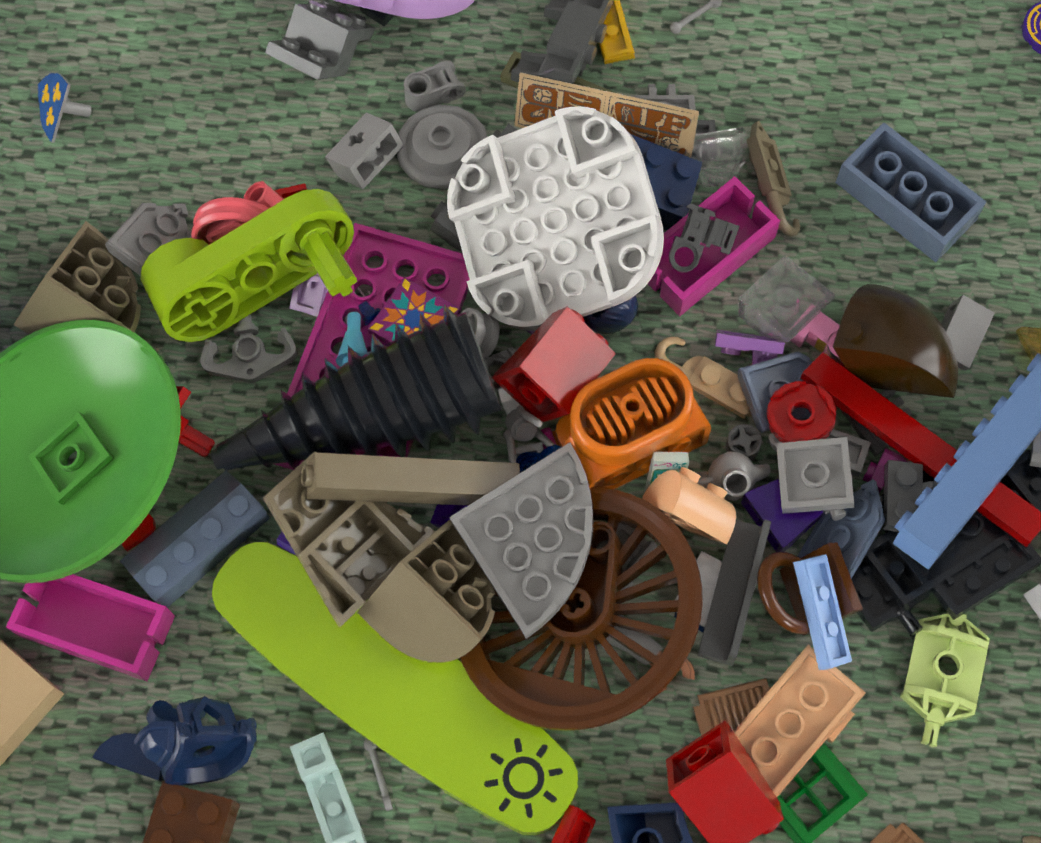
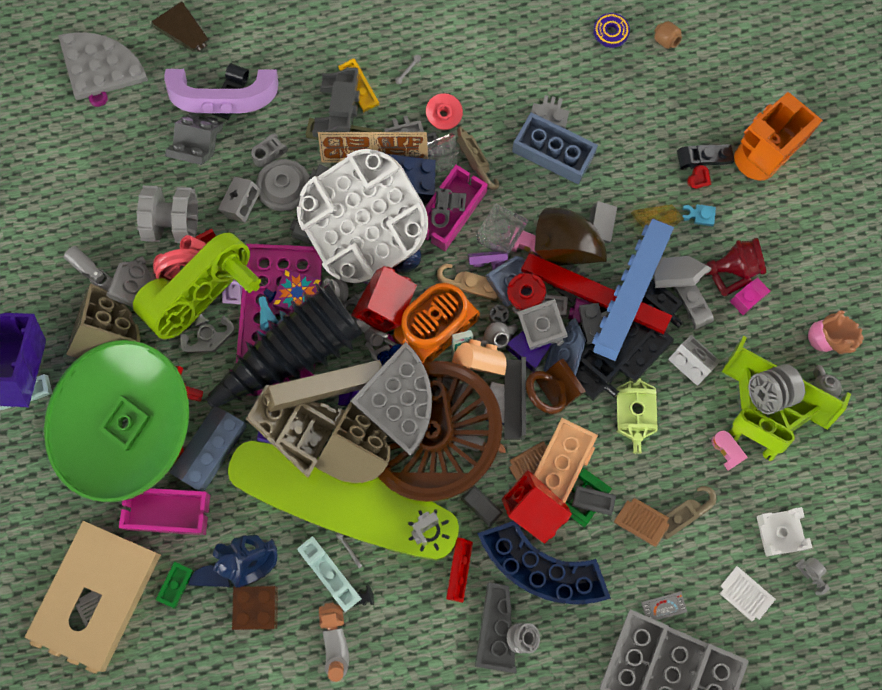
camera: 20 degrees left, 5 degrees up
(54, 102) = (46, 215): shield -> none
(69, 751) = (174, 585): none -> green plate
(91, 197) = (87, 267): none -> light grey piece
(223, 138) = (155, 213): none -> light grey piece
(518, 763) = (424, 523): none -> light grey bracket
(628, 762) = (481, 506): none -> dark grey tile
(740, 78) = (445, 103): none -> coral dish
(822, 612) = (565, 398): light blue tile -> none
(829, 807) = (594, 500): none -> dark grey tile
(920, 132) = (551, 111): none -> light grey hinge

